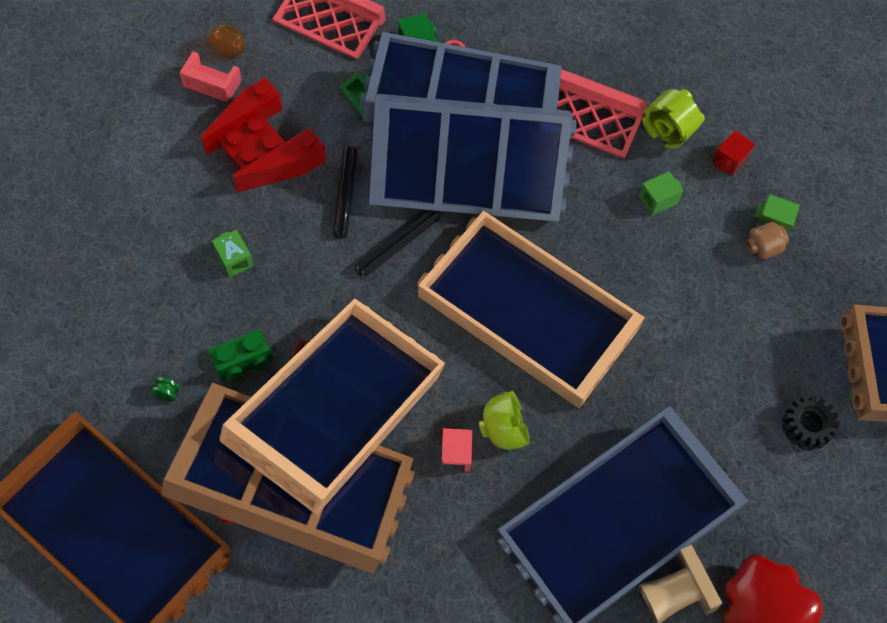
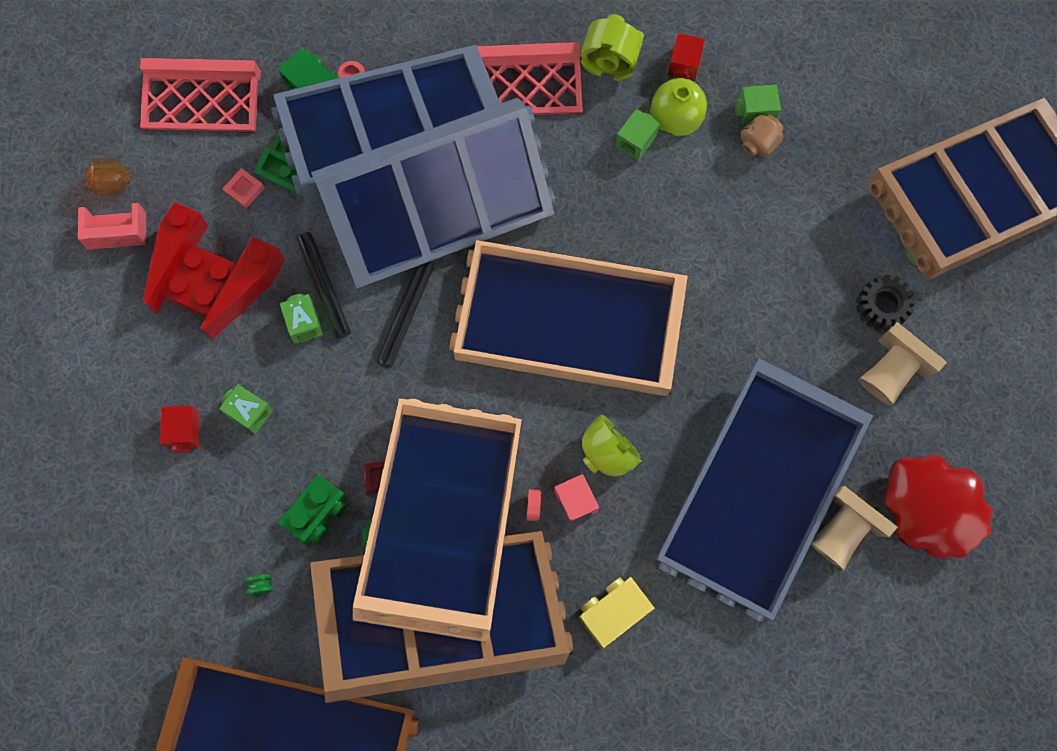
camera: 25 degrees left, 10 degrees up
(174, 243) = (179, 428): none -> red brick
(313, 207) = (301, 318): none -> bright green brick
(324, 95) = (243, 188): none -> coral tile
(418, 437) = (534, 502): none -> coral tile
(440, 557) = (615, 612): none -> light yellow brick
(708, 188) = (679, 106): none -> lime cylinder
(791, 478) = (898, 366): none -> tan plant

